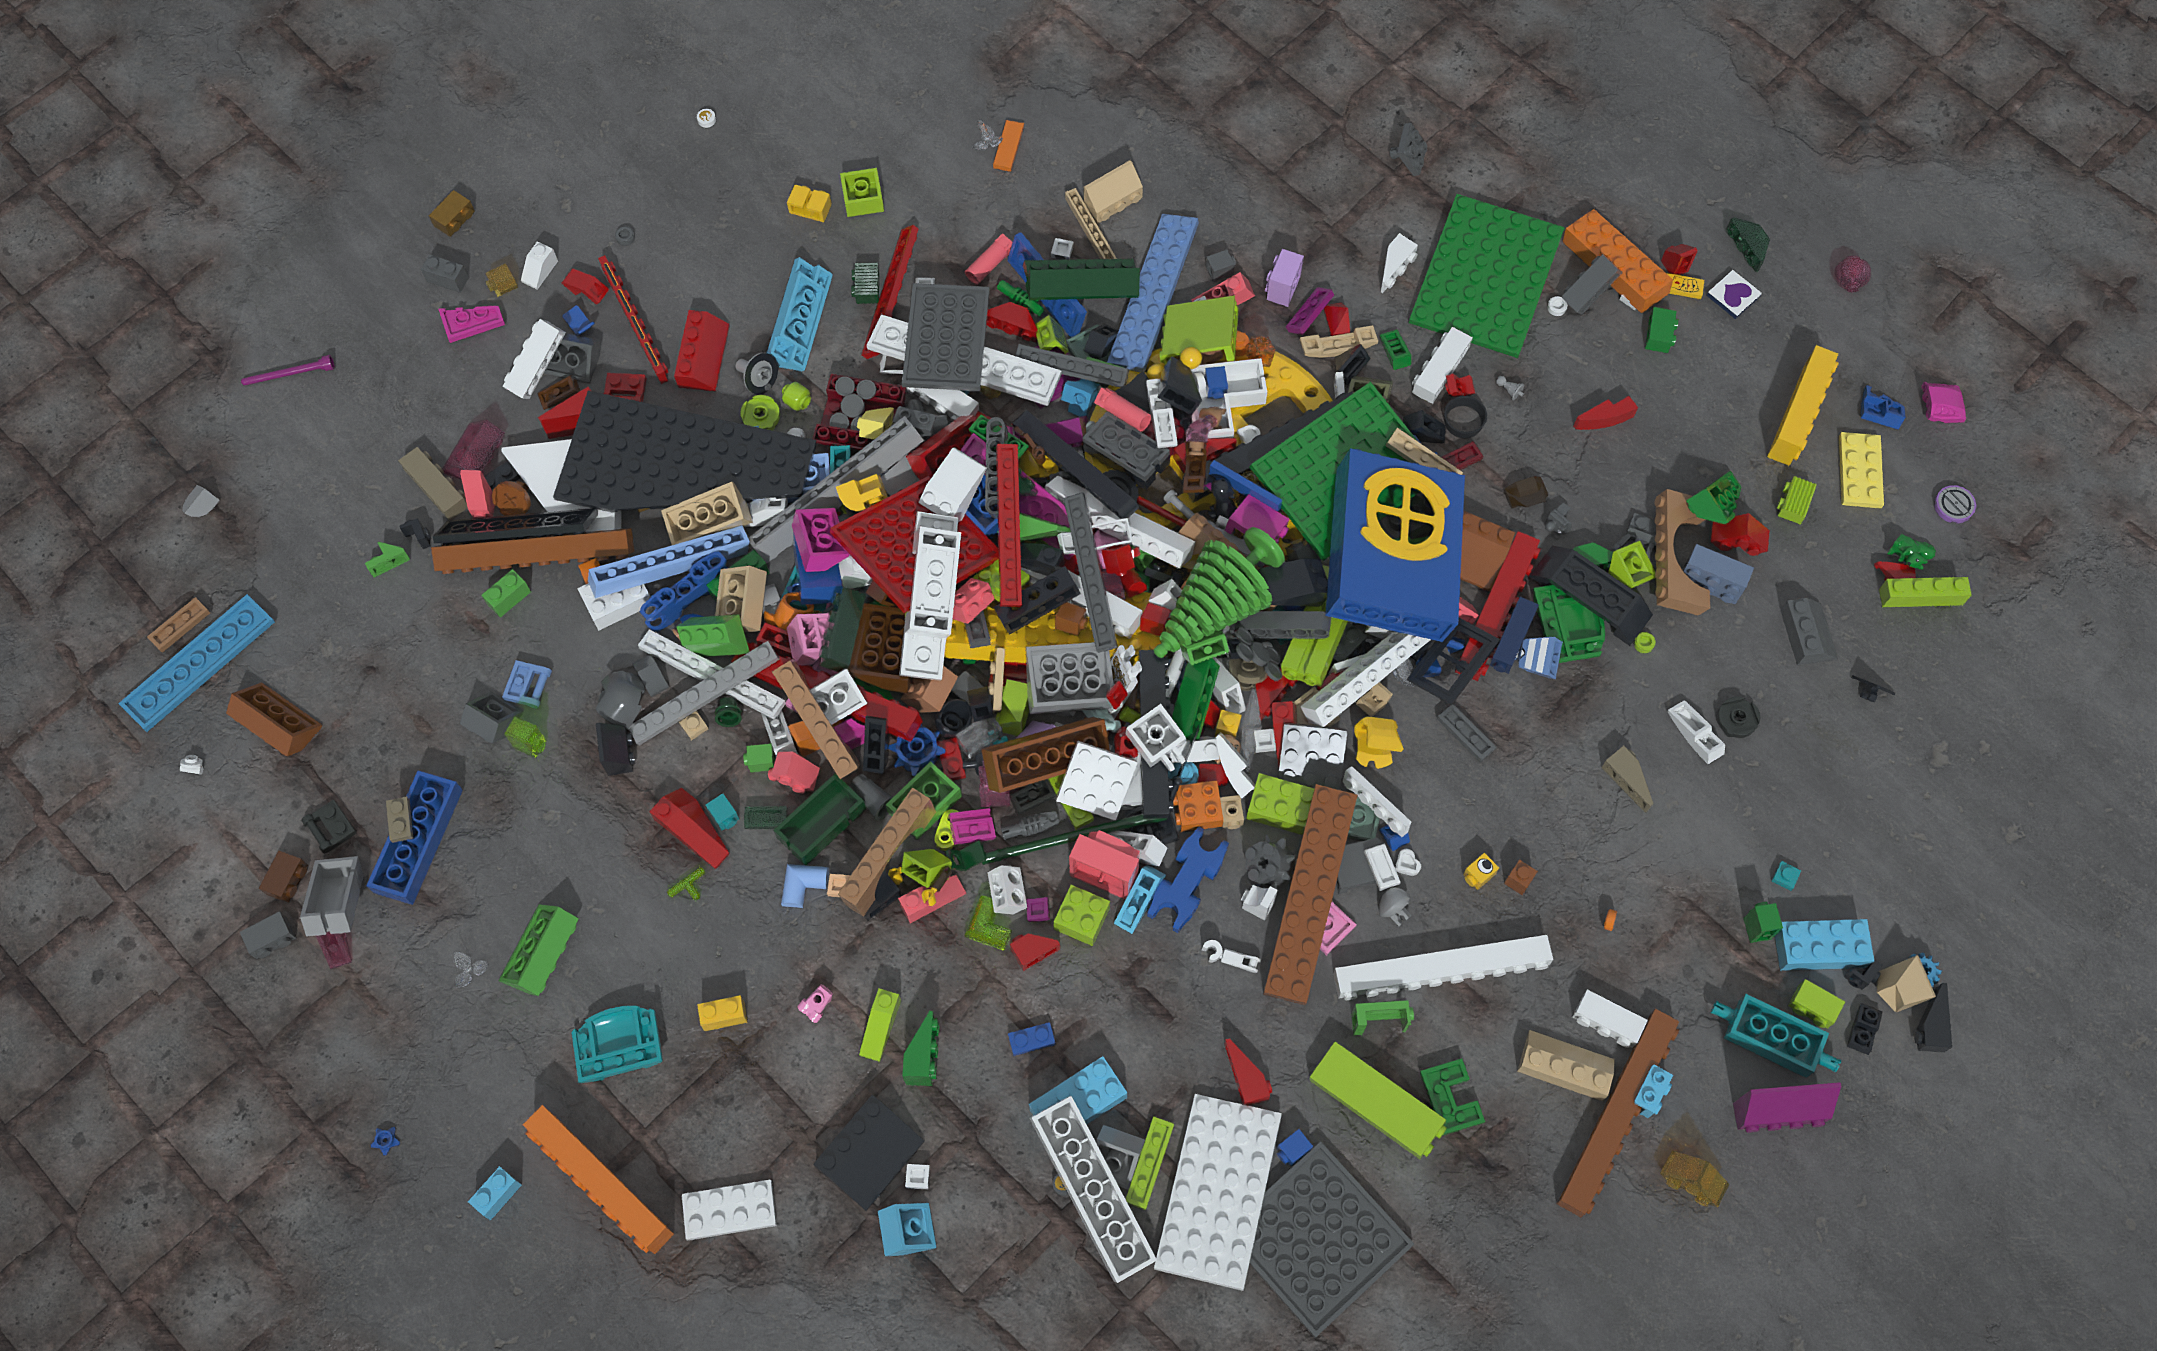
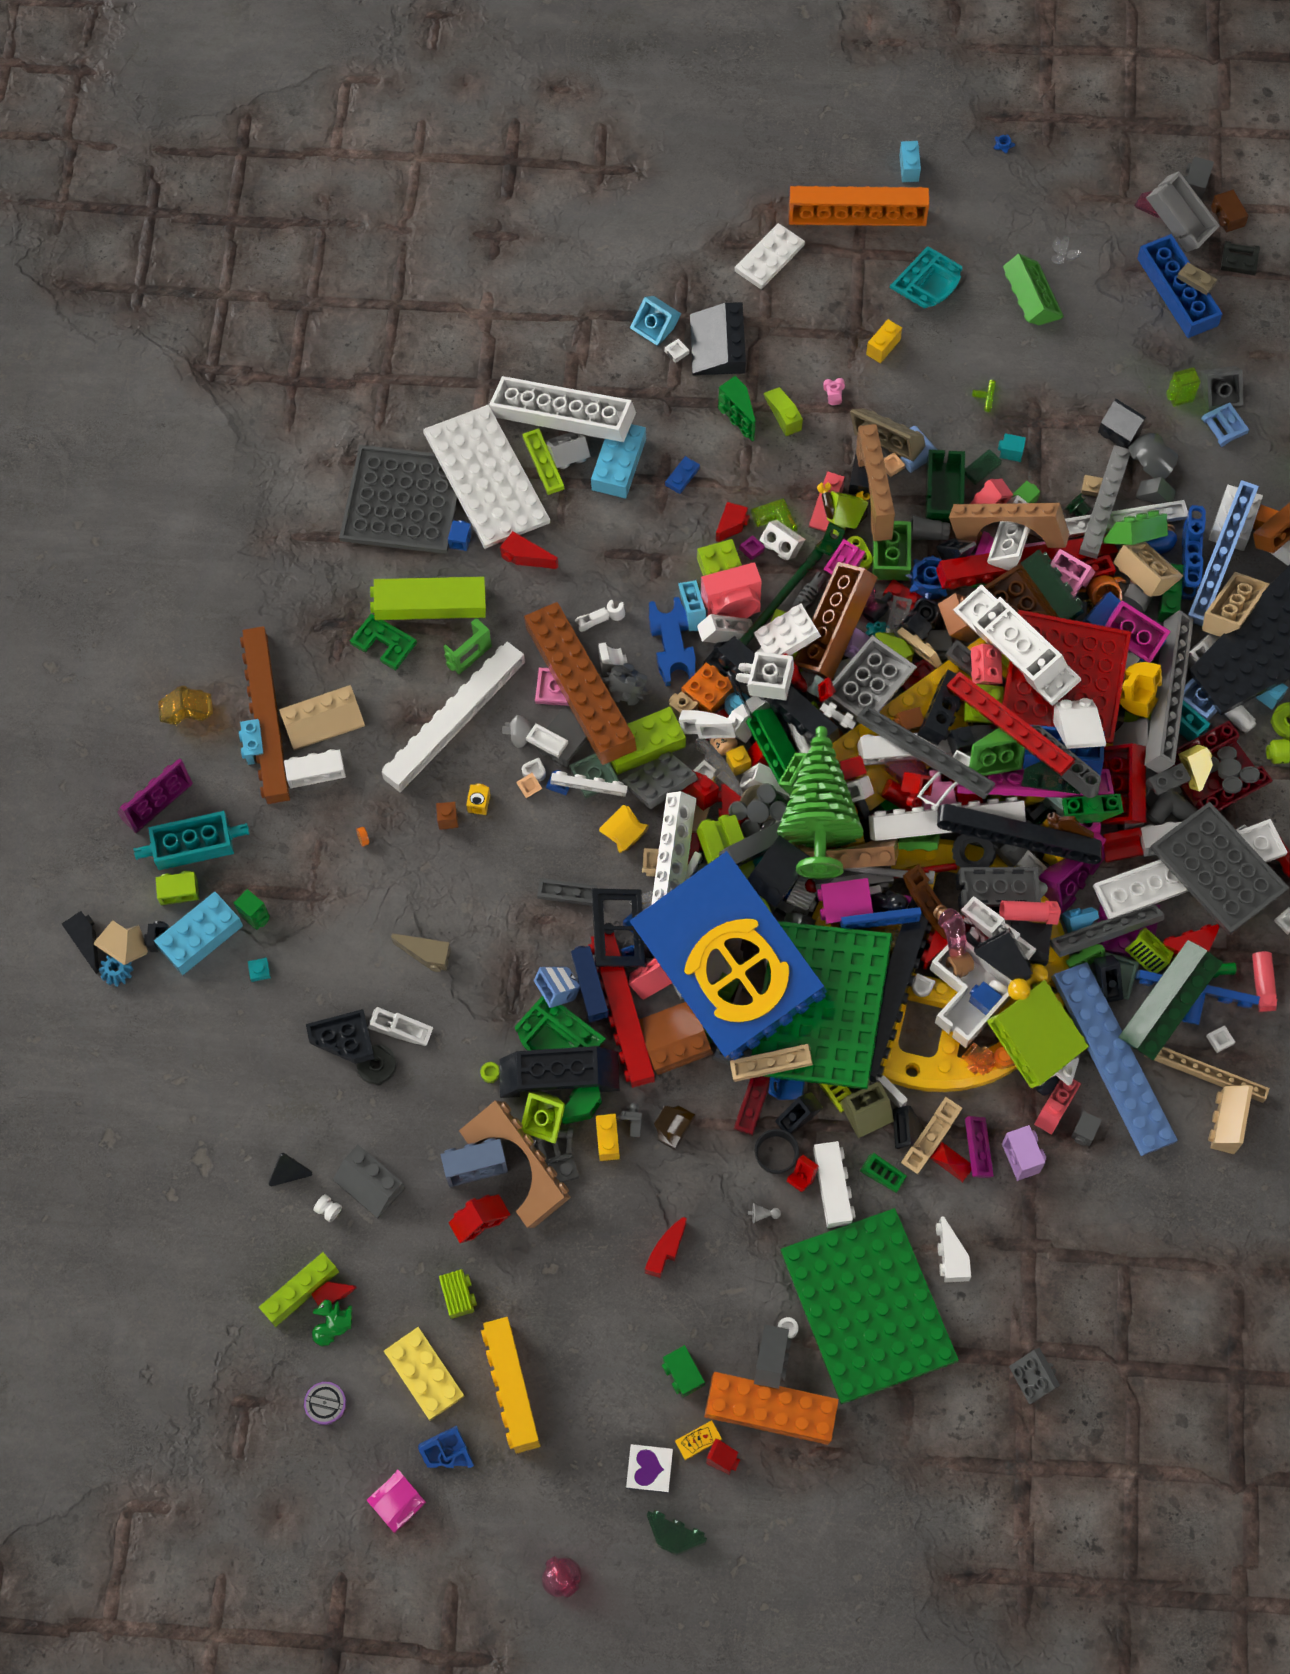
camera: 140 degrees right, 0 degrees up
(688, 823) = (1034, 422): red wedge -> none
(817, 909) = (892, 435): none -> dark tan slope
(1425, 849) = (529, 785): none -> light nougat plate
(1589, 520) = (607, 1137): none -> yellow brick
(1716, 500) = (518, 1224): green wedge -> none
(1753, 755) = (343, 1036): none -> black plate
(1859, 635) = (327, 1208): none -> white wheel
(1864, 1029) = (132, 900): black slope -> none

